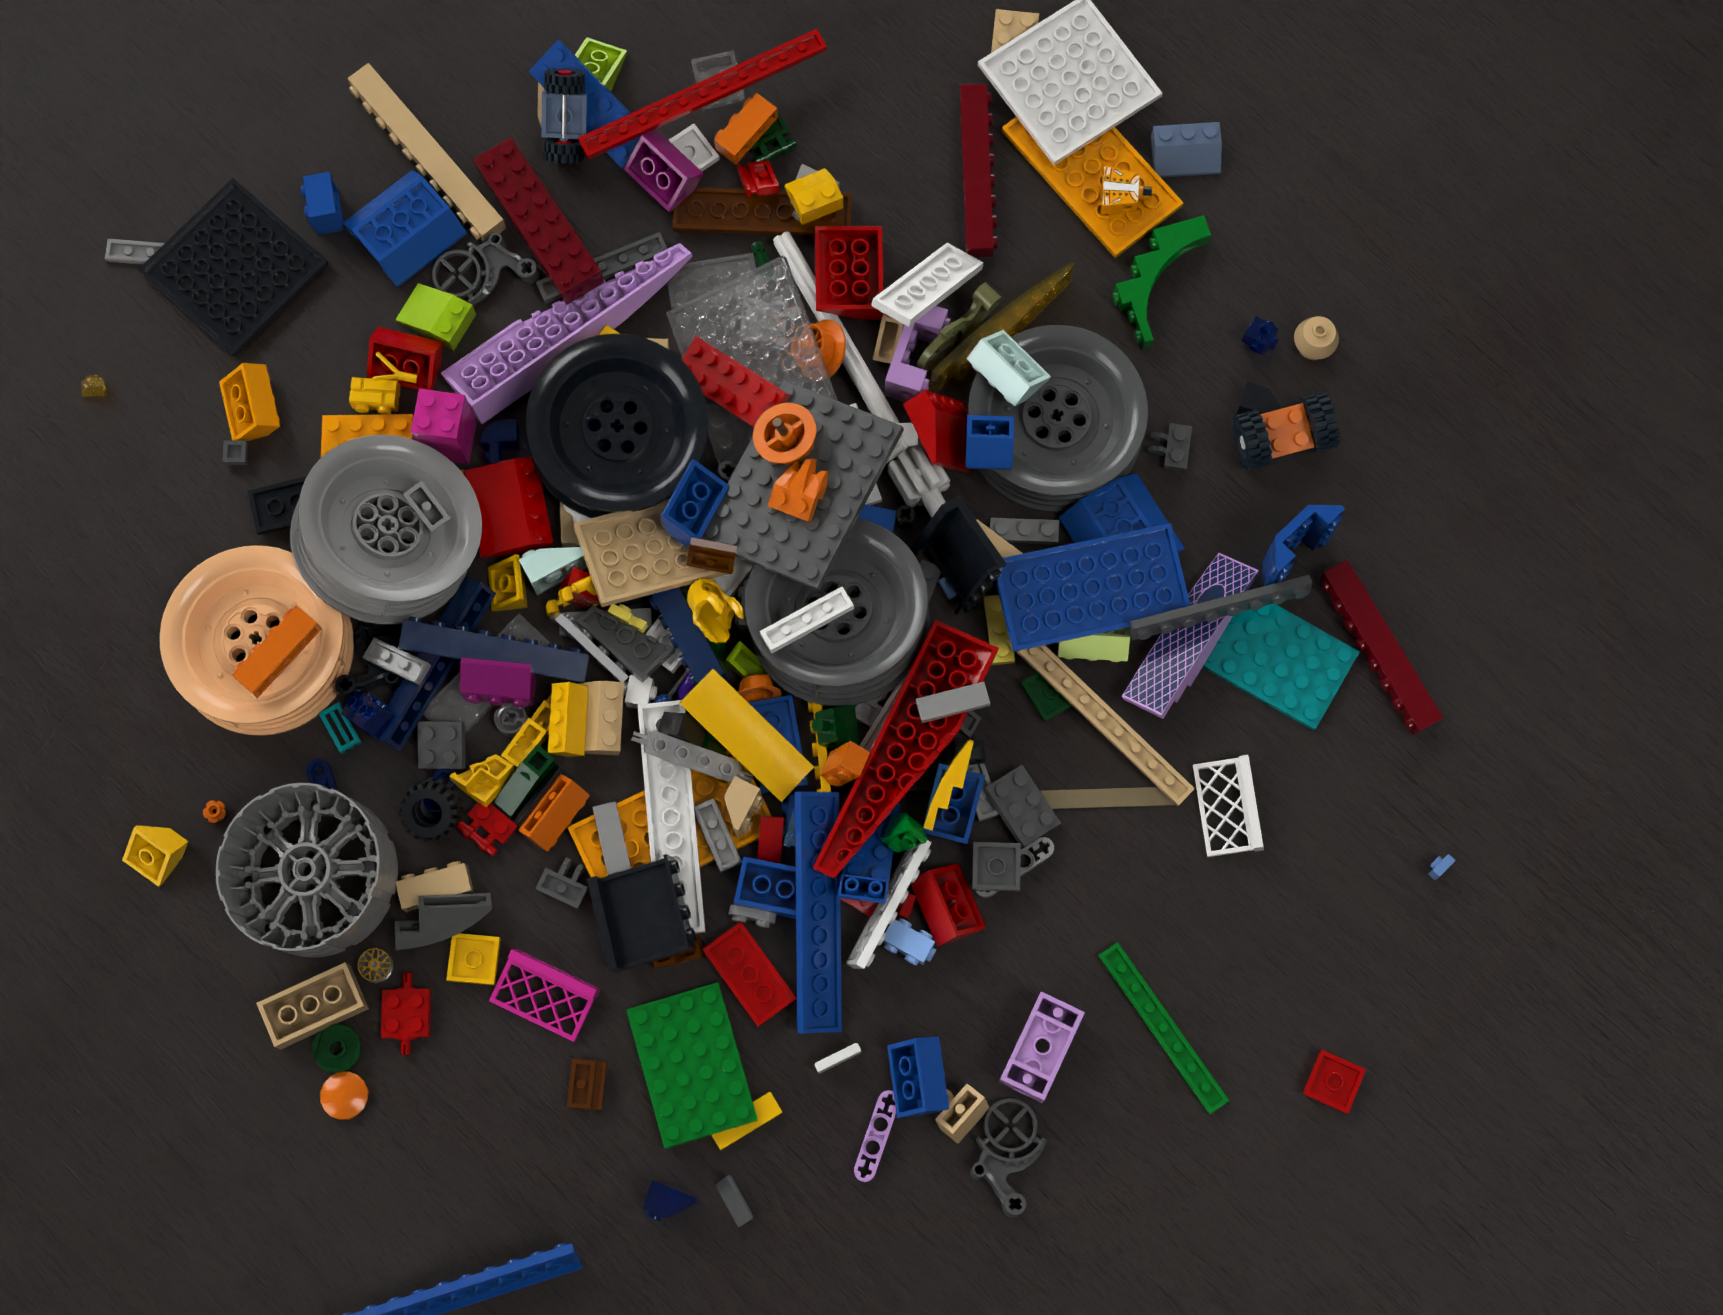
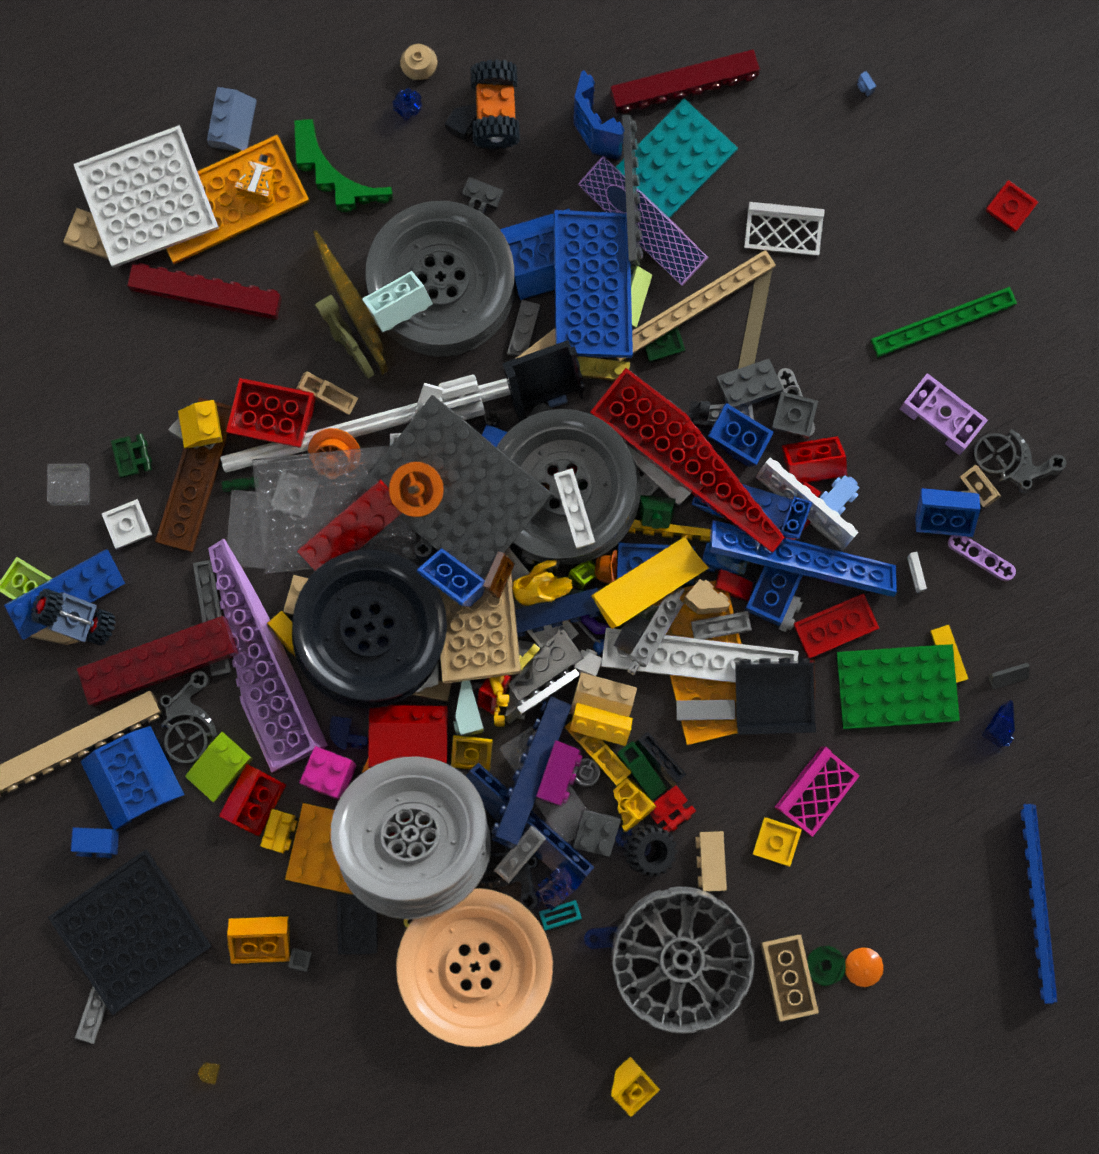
camera: 80 degrees left, 5 degrees up
(214, 817) = (607, 1026): orange plate -> none
(276, 651) = (498, 947): orange brick -> none
(375, 965) = (765, 921): wheel -> none
(402, 376) = (268, 806): yellow plant -> none
(406, 1013) = (808, 905): red plate -> none
(427, 506) = (403, 797): light grey brick -> none
(441, 918) = (741, 859): dark grey slope -> none
(554, 812) = (673, 752): orange brick -> none
(563, 888) = (734, 759): dark grey hinge -> none
(587, 1084) = (896, 771): reddish brown plate -> none
(663, 170) = (140, 547): magenta slope -> none
(702, 94) = (84, 497): red plate -> none
(745, 128) = (120, 470): orange brick -> none
(758, 178) = (167, 470): red plate -> none
(799, 490) = (466, 489): orange plate -> none
(844, 764) = (691, 510): orange brick -> none
(903, 833) = (756, 477): green slope -> none
(906, 380) = (330, 367): lavender plate -> none
(927, 284) = (303, 351): white plate -> none
(941, 428) = (432, 369): red slope -> none
(952, 702) = (663, 412): light grey tile -> none
(952, 778) = (724, 427): yellow slope -> none
(989, 442) = (458, 331): blue slope -> none

